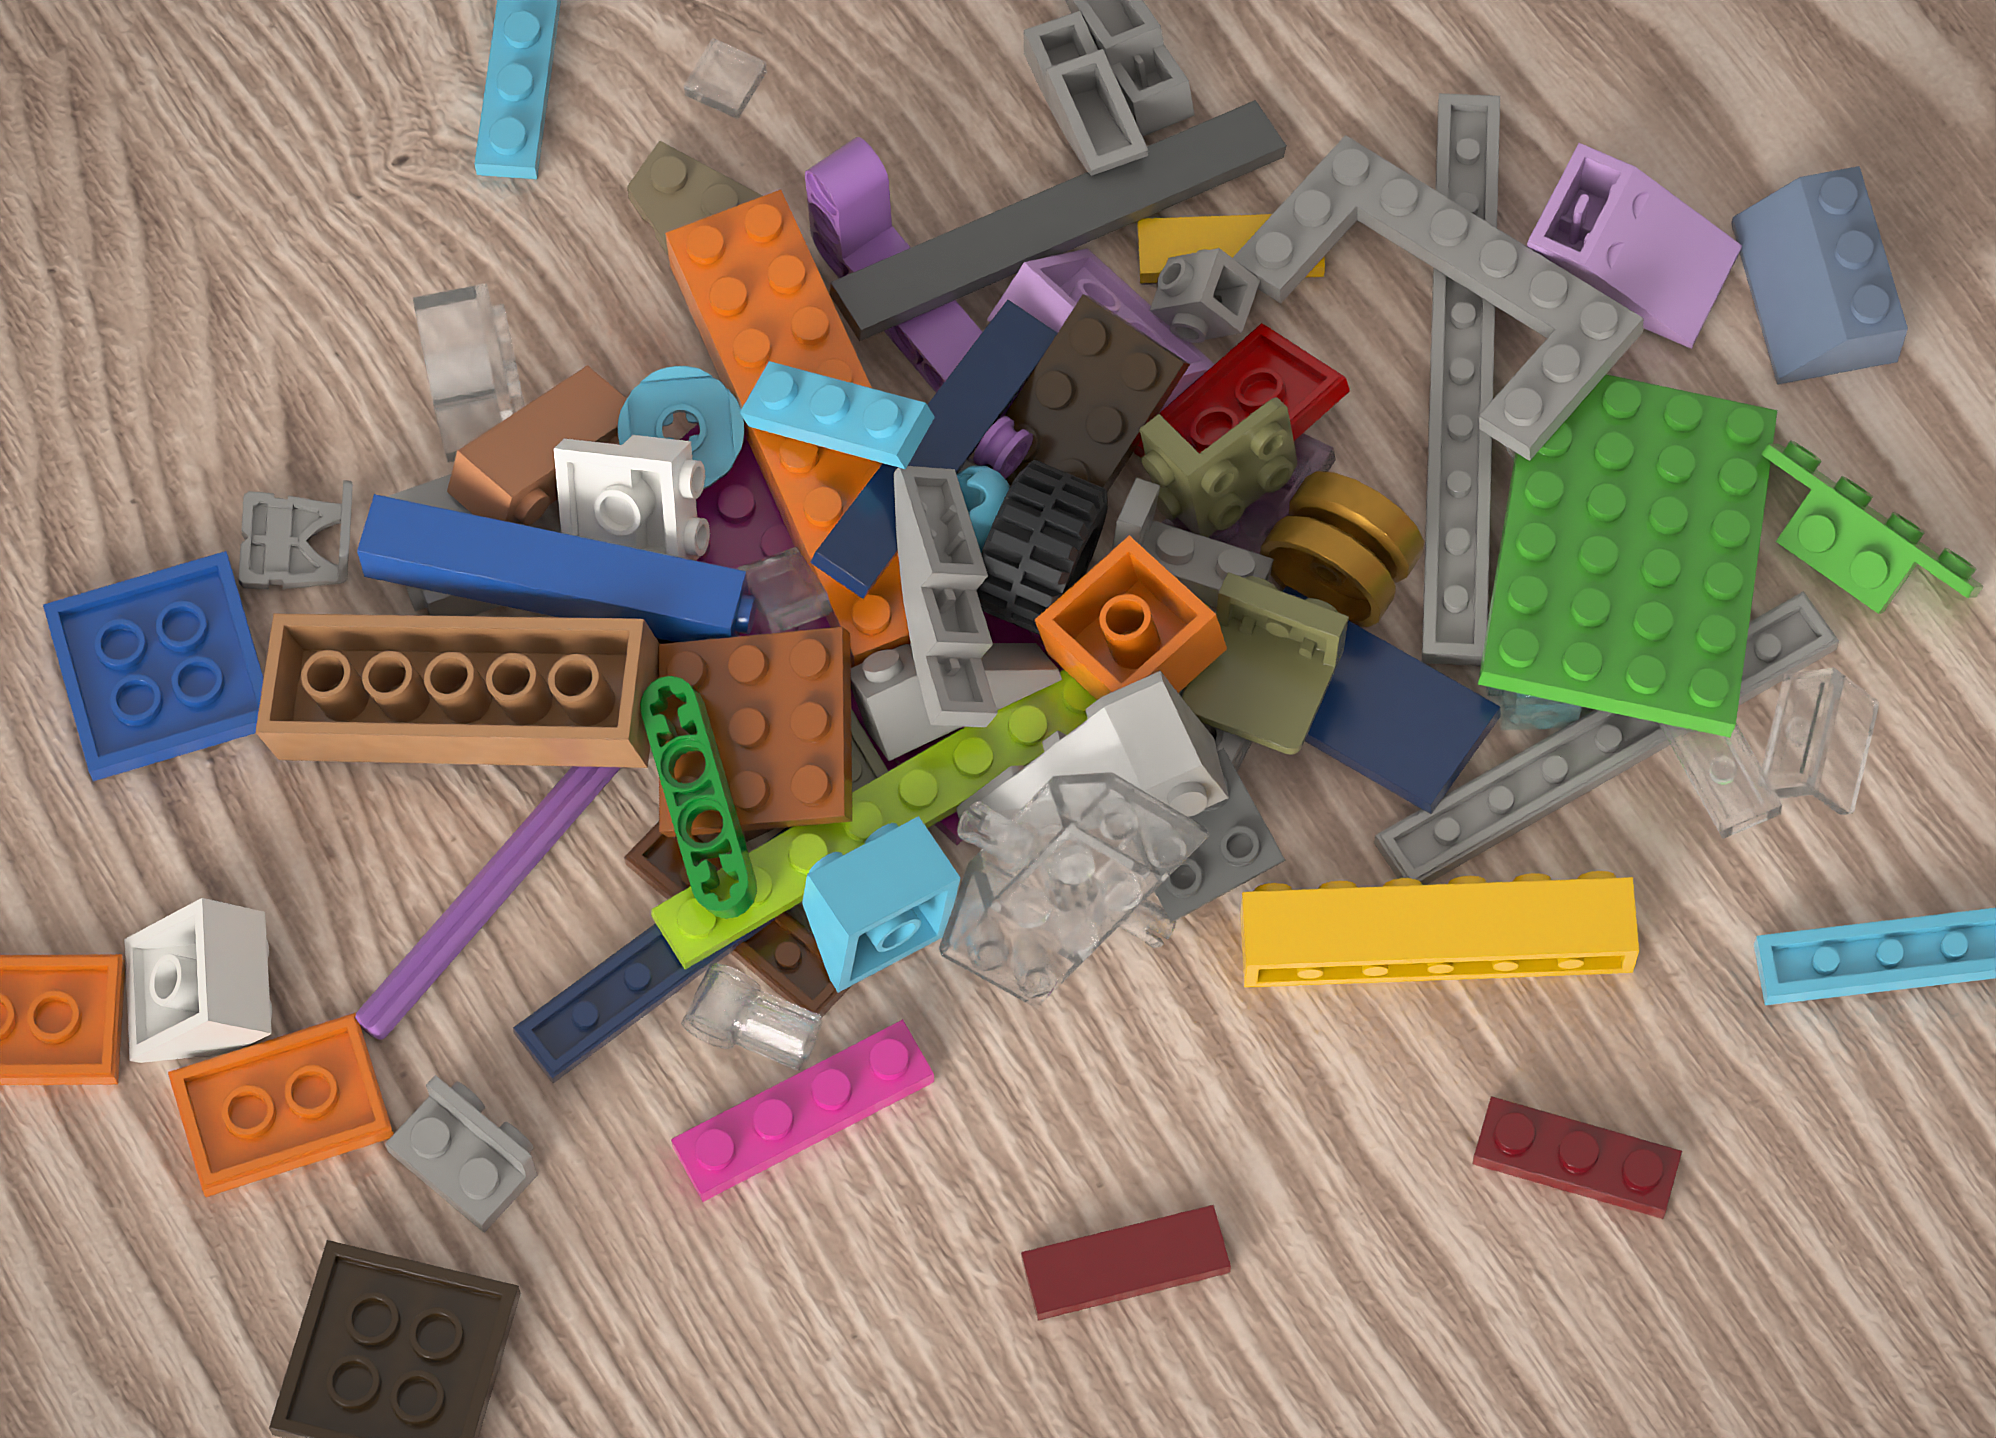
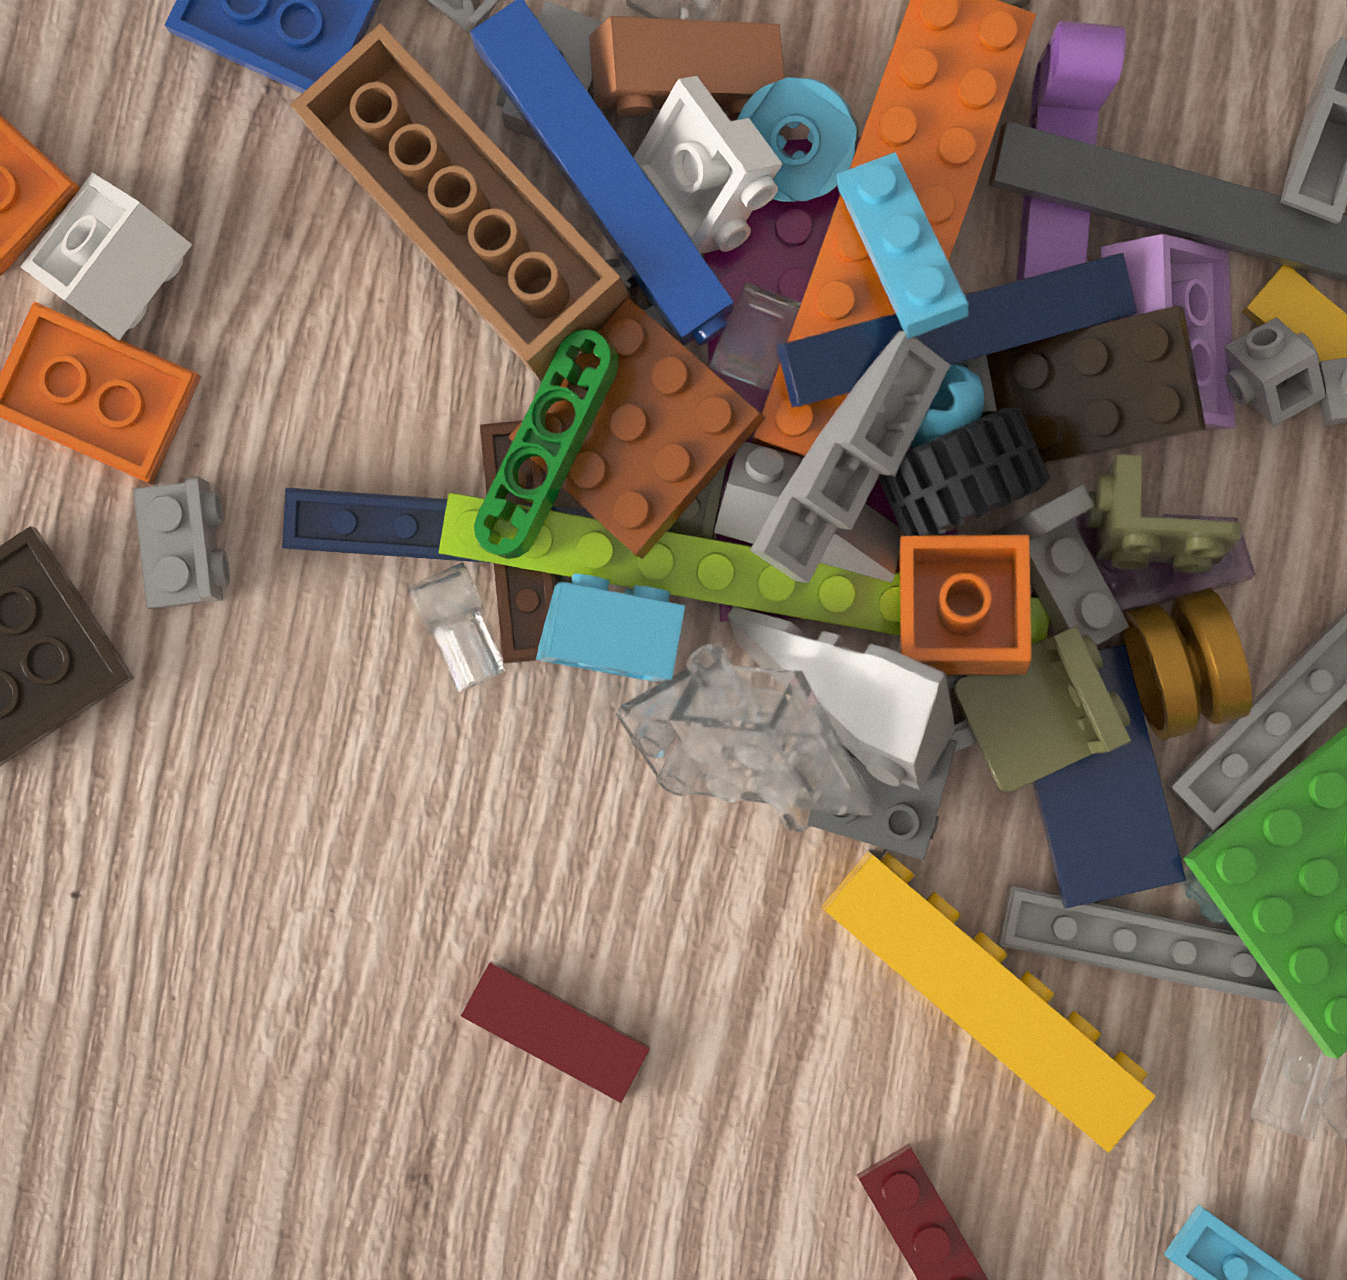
camera: 40 degrees right, 20 degrees up
(481, 899) = (349, 366): medium lavender axle -> none
(802, 1110) = (437, 721): dark pink plate -> none
(1003, 447) = (1011, 368): medium lavender bush -> none
(1247, 378) = (1230, 477): red tile -> none

